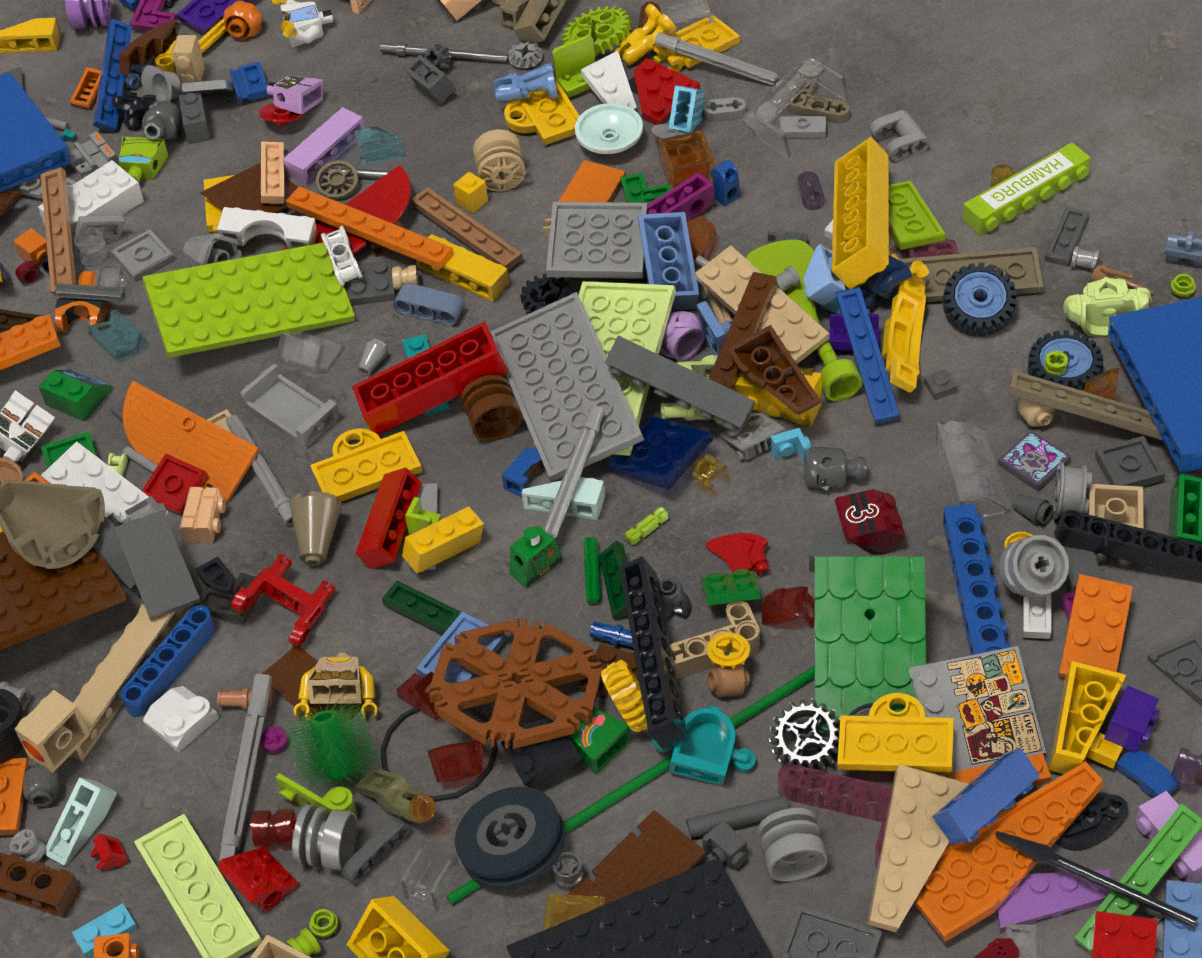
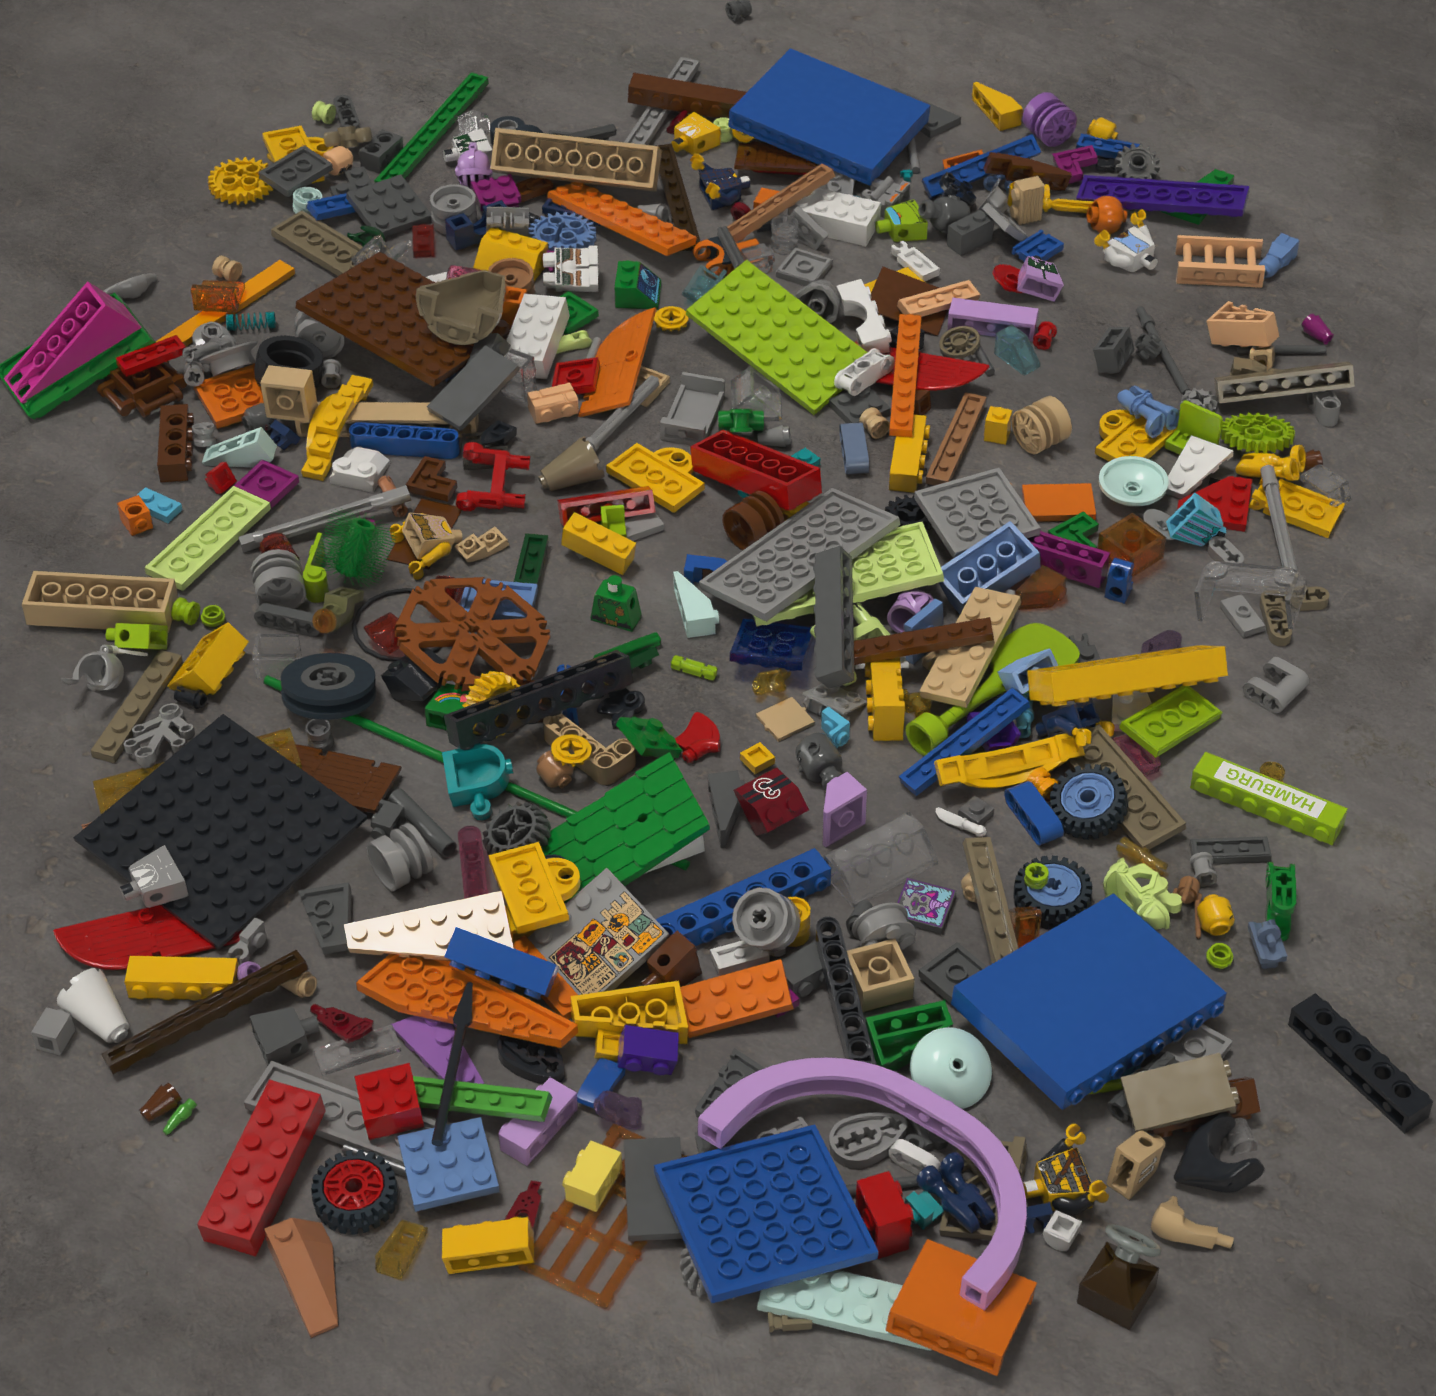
camera: 60 degrees right, 5 degrees down
(75, 768) = (284, 433): none -> dark blue tile
(106, 716) = (328, 424): none -> yellow piece
(141, 372) = (678, 315): none -> yellow gear
(146, 807) = (268, 482): none -> magenta plate
(198, 171) = (915, 261): none -> white plate
(247, 661) = (427, 480): none -> reddish brown plate
(258, 877) = (230, 562): red plate -> none
(348, 367) = (741, 420): none -> green piece
(368, 642) = (484, 546): none -> tan slope
(372, 119) = (1044, 335): none -> red bush
(589, 430) = (705, 590): light grey axle -> none
(750, 481) = (785, 719): none -> tan piece
(774, 369) = (889, 668): reddish brown wedge -> none
(788, 279) = (1008, 650): light grey bush -> none
(795, 516) = (757, 758): none -> yellow plate
(903, 471) = (843, 808): none -> lavender slope
(937, 325) = (1041, 780): none -> light orange wheel
(950, 398) = (959, 822): none -> white piece
(966, 344) = (1034, 813): none -> blue beam
(1039, 664) = (673, 962): none -> reddish brown torso
(1051, 292) = (1141, 855): none -> clear yellow pin
(1143, 269) = (1215, 915): none -> yellow head
(1148, 218) = (1280, 896): none -> green piece

